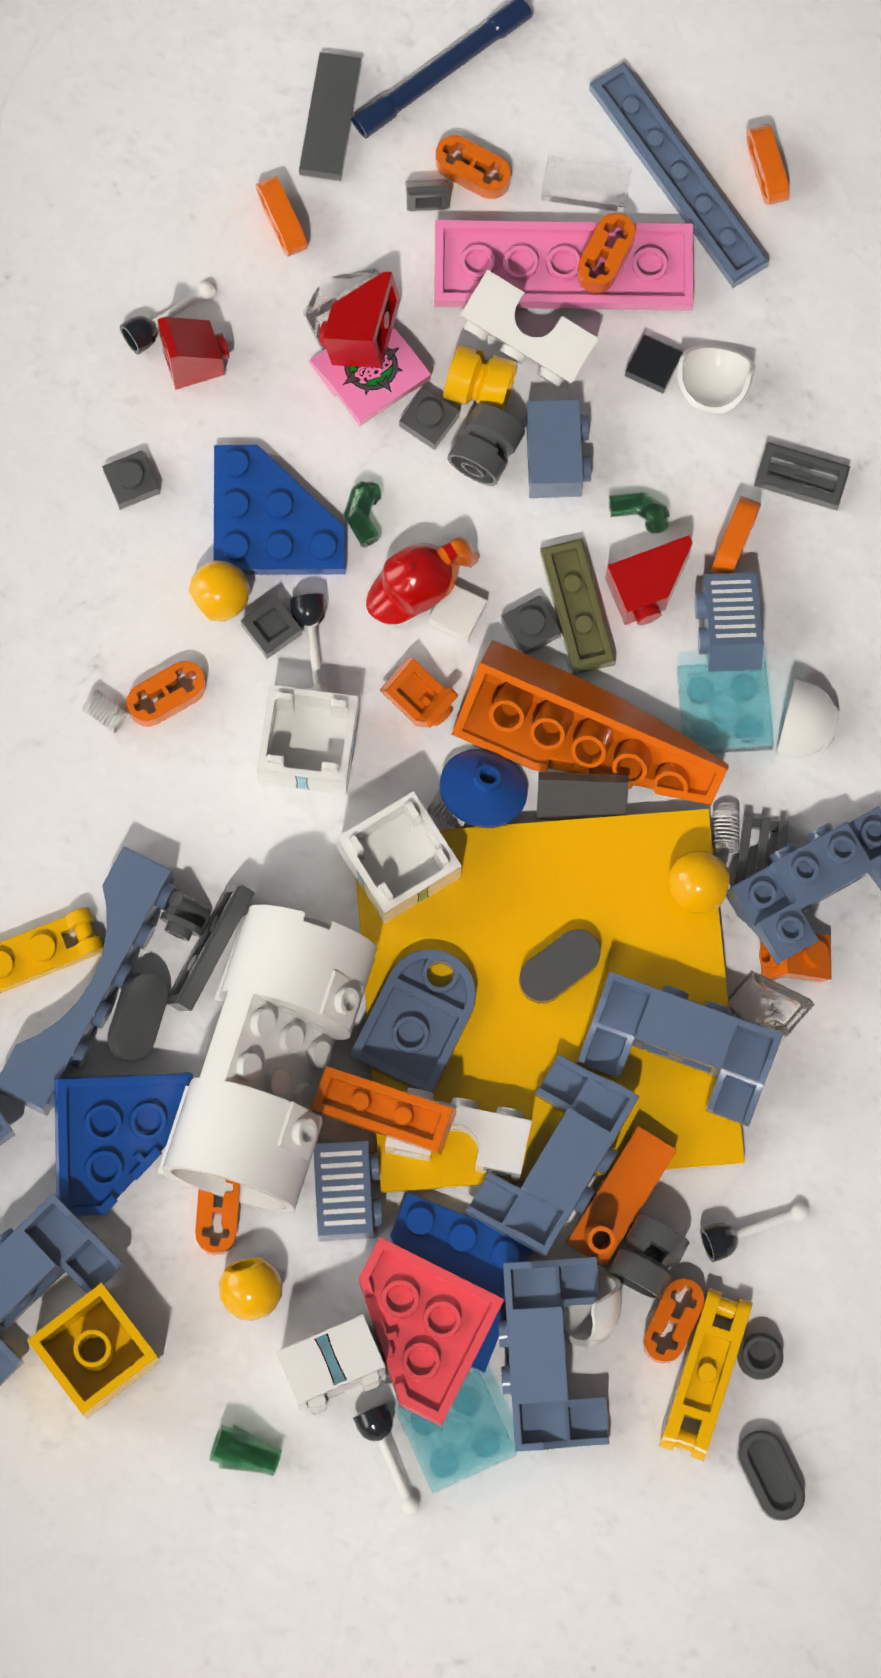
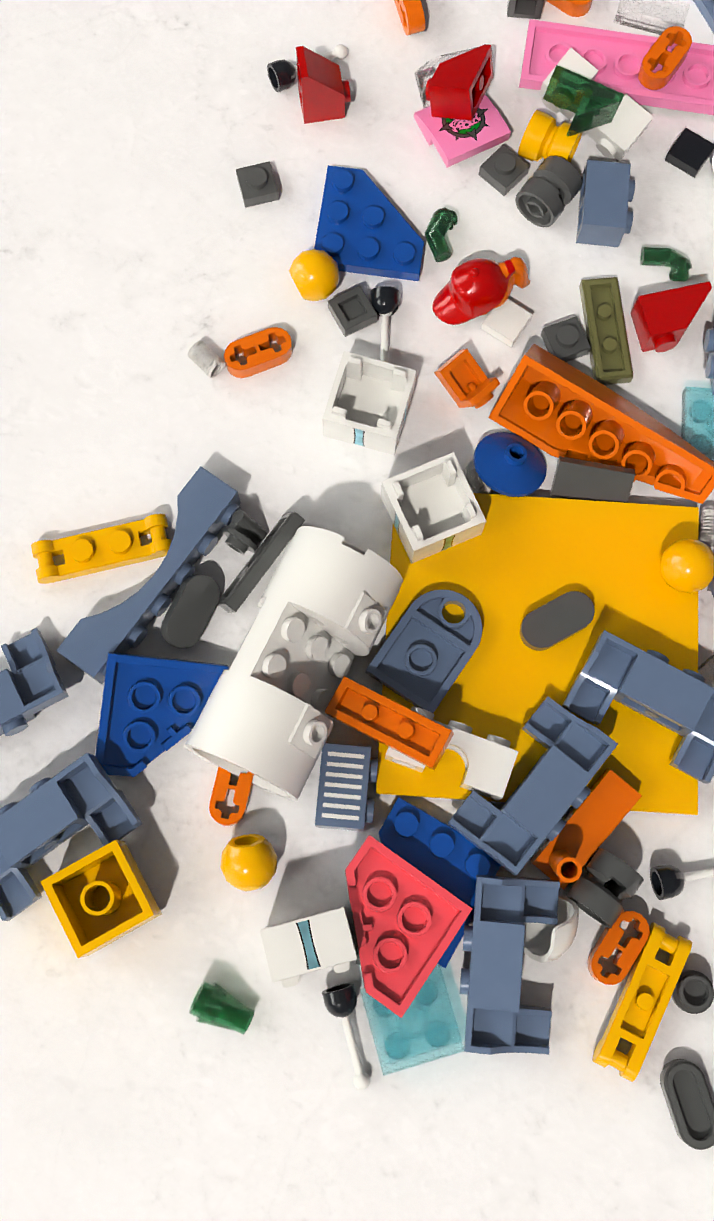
camera: 10 degrees right, 0 degrees up
(520, 338) = (590, 101): none -> clear green slope

